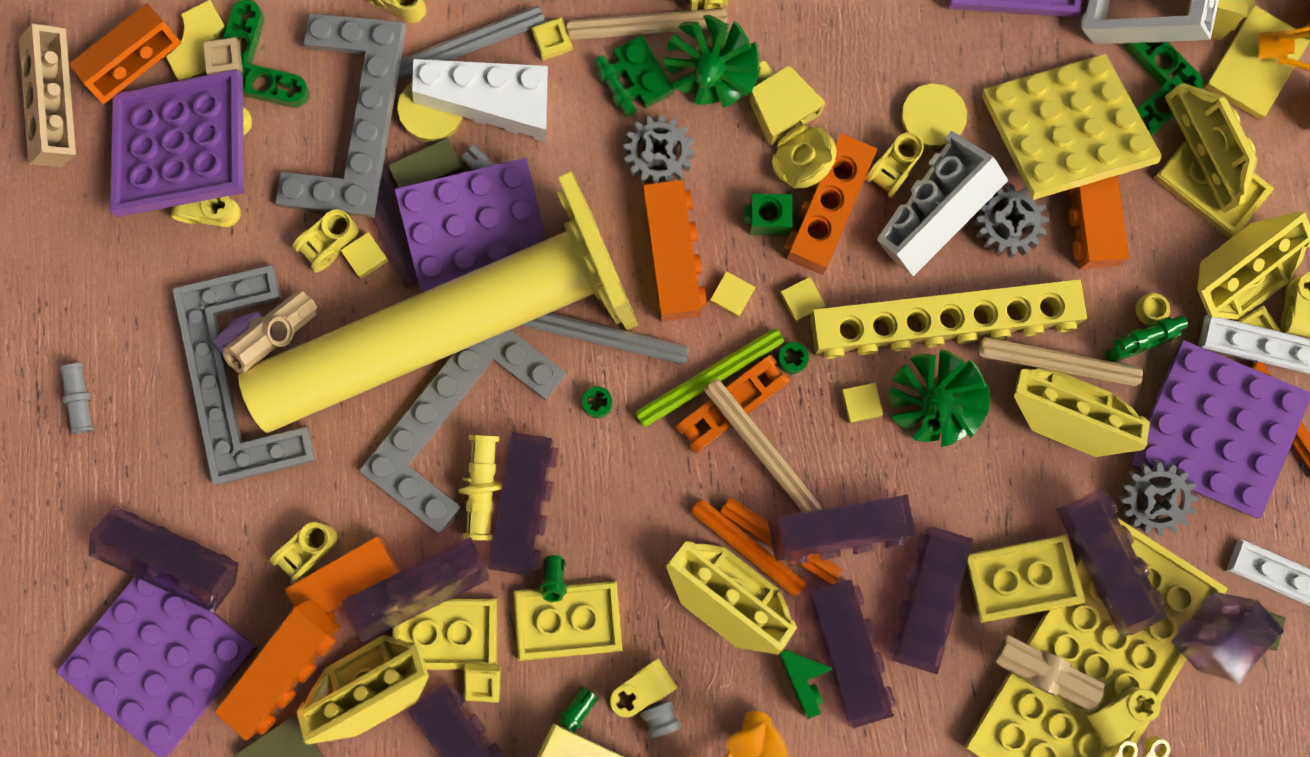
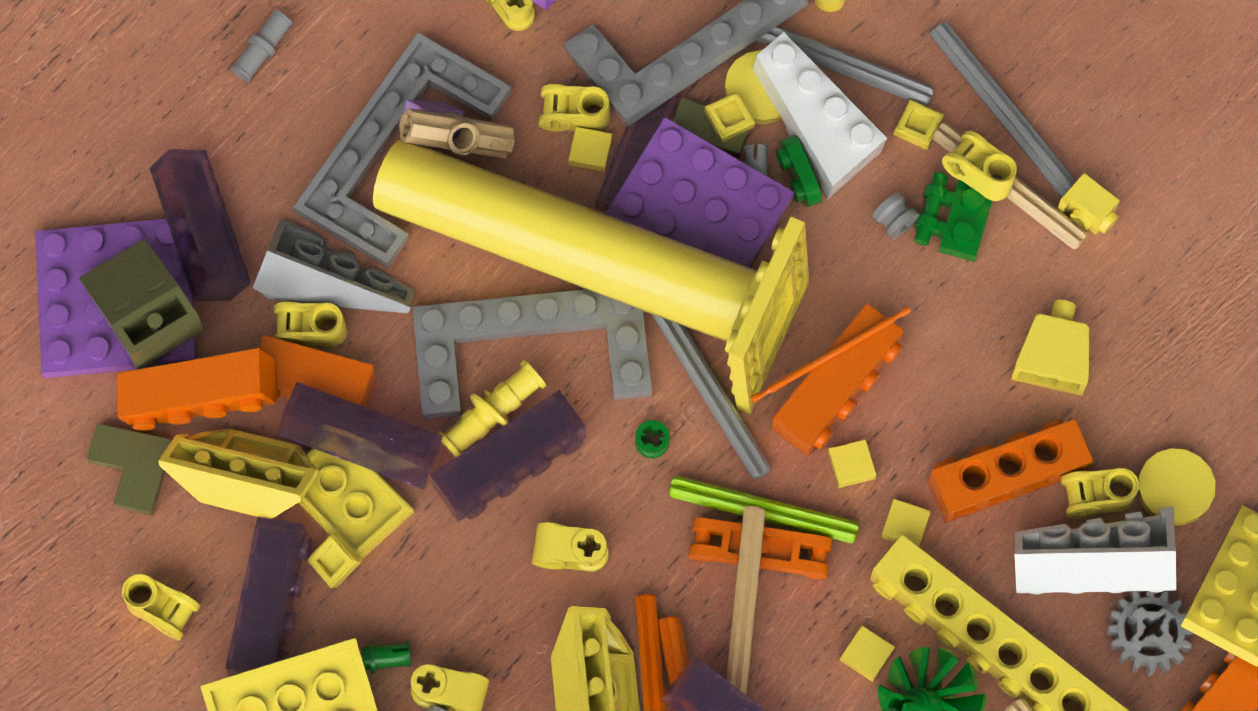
camera: 50 degrees right, 10 degrees down
(181, 652) = (142, 304): none -> olive slope
(270, 515) = (307, 271): none -> light grey wedge
(432, 148) = (729, 116): none -> light yellow tile
(501, 136) = (804, 183): none -> green plate
(553, 583) = (466, 540): green pin -> none
(577, 625) = (450, 583): light yellow tile -> none
(600, 111) = (895, 216): none -> light grey wheel
(614, 528) = (564, 547): none -> light yellow piece
(621, 27) = (979, 164): none -> light yellow piece
(651, 139) = (925, 292): light grey gear -> none
(654, 245) = (830, 354): none -> orange piece
(723, 63) = (1027, 271): green piece -> none
(782, 207) = (954, 443): green brick -> none
(791, 368) = (858, 557): green bush -> none
(804, 156) = (1026, 410): light yellow tile -> none

